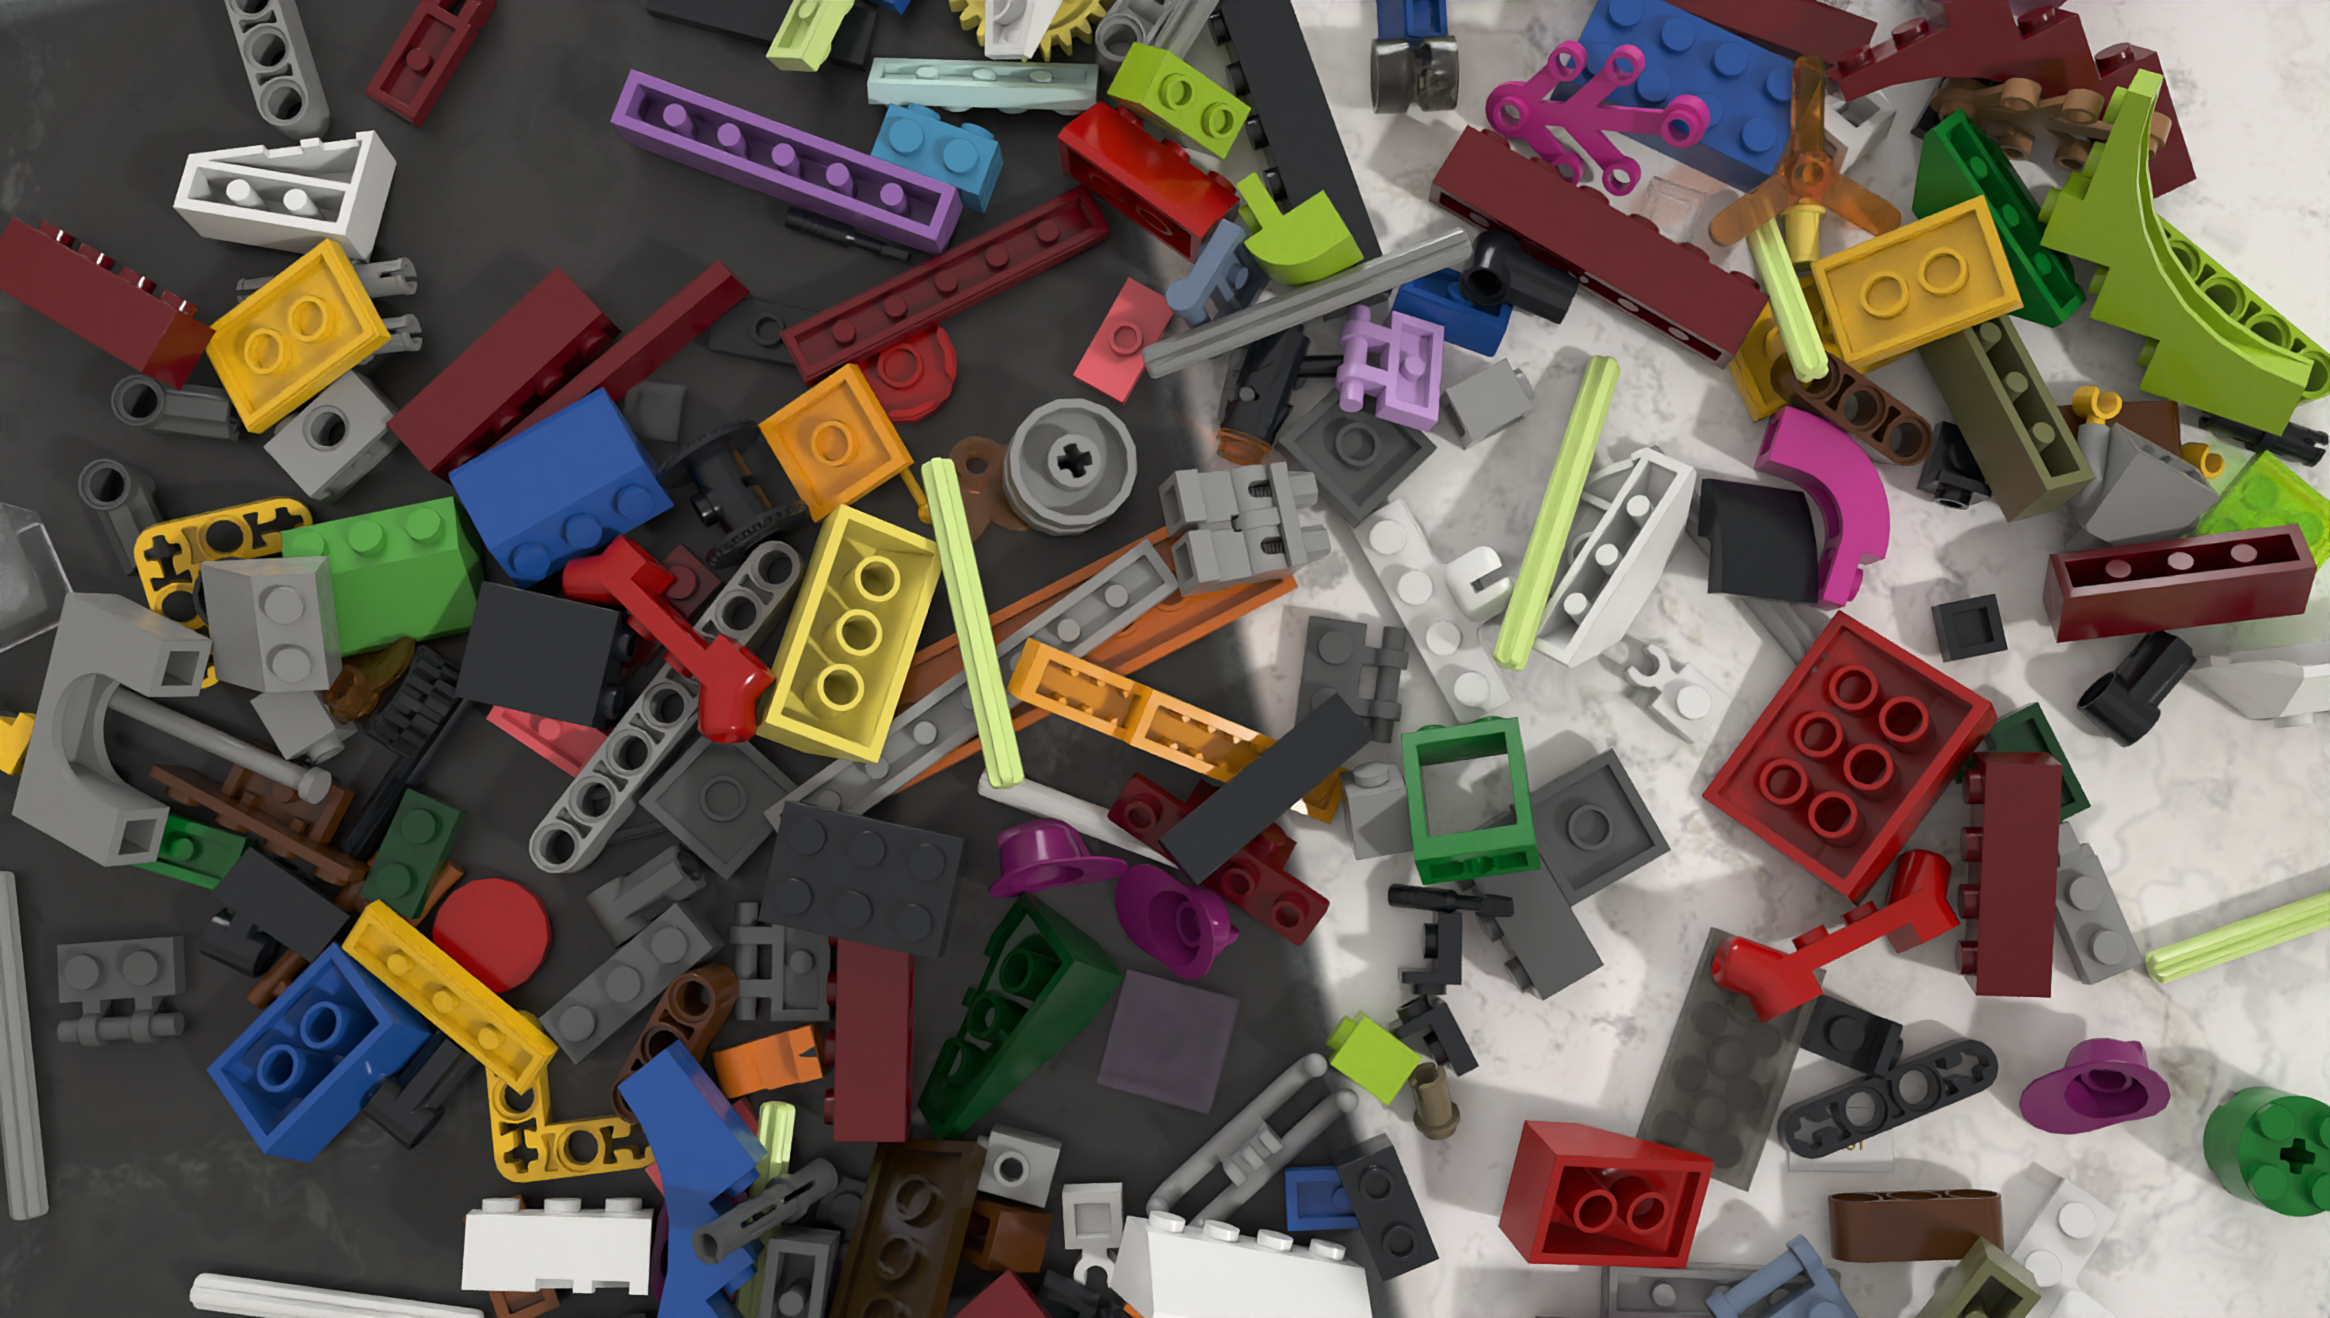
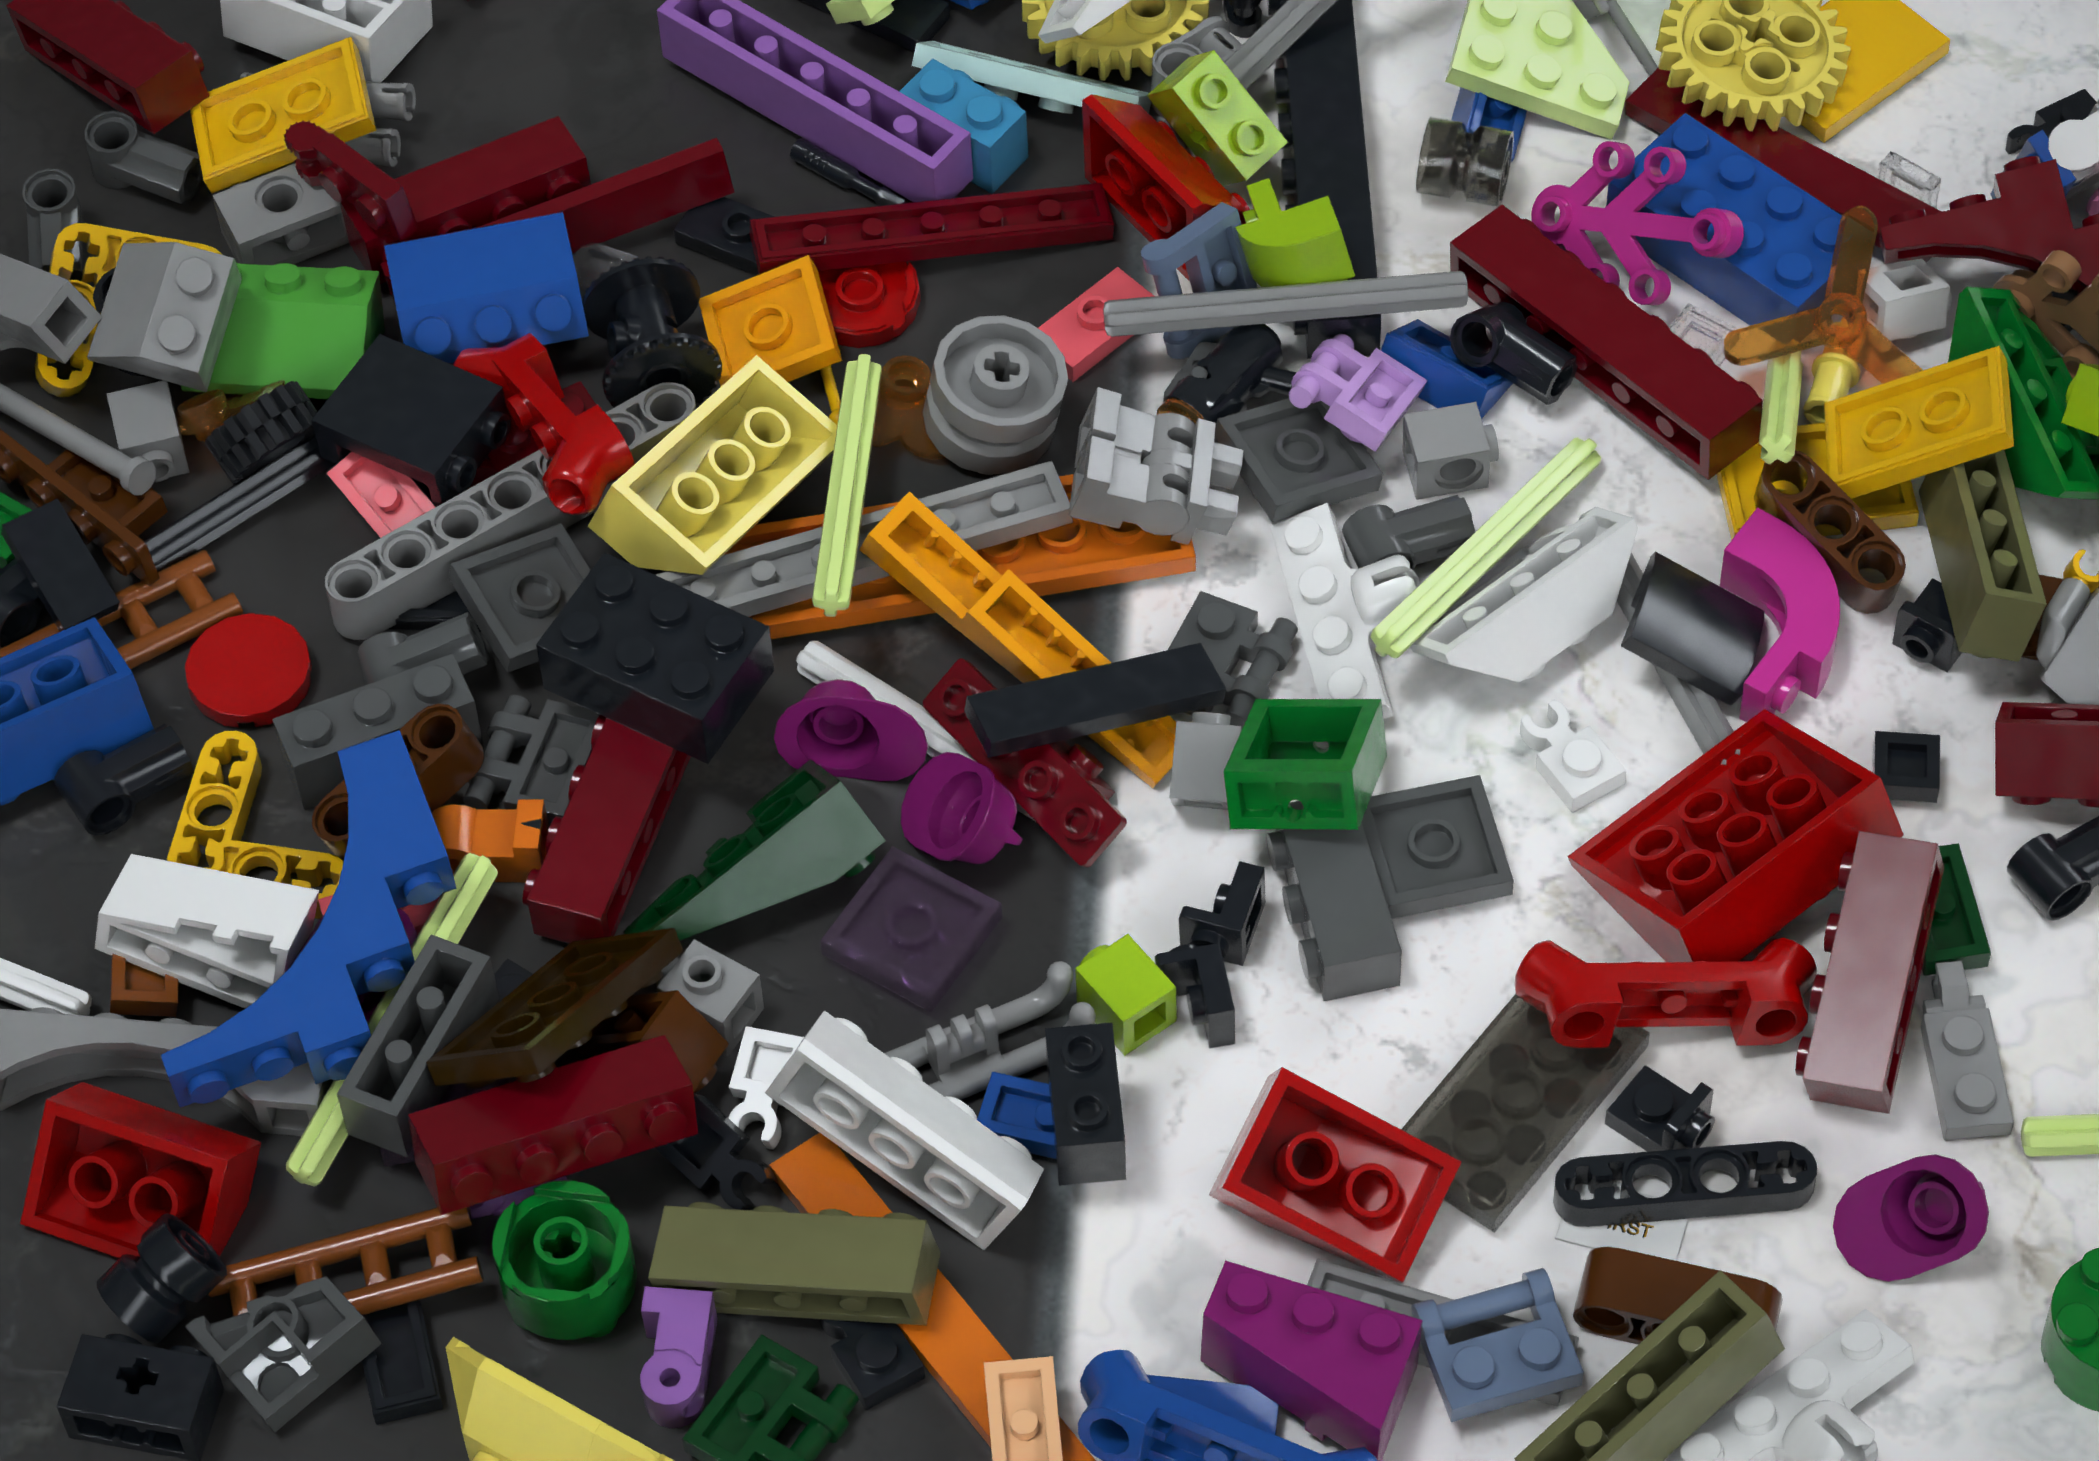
camera: 20 degrees right, 30 degrees down
(387, 412) = (350, 176): none -> dark red hinge
(413, 853) = (204, 568): dark green plate -> none
(449, 996) = (189, 691): yellow tile -> none
(725, 1235) = (434, 912): dark grey pin -> none
(1435, 1112) = (1176, 1048): dark tan pin -> none
(1448, 900) = (1226, 862): black piece -> none
(1468, 514) = (1416, 533): none -> dark grey piece

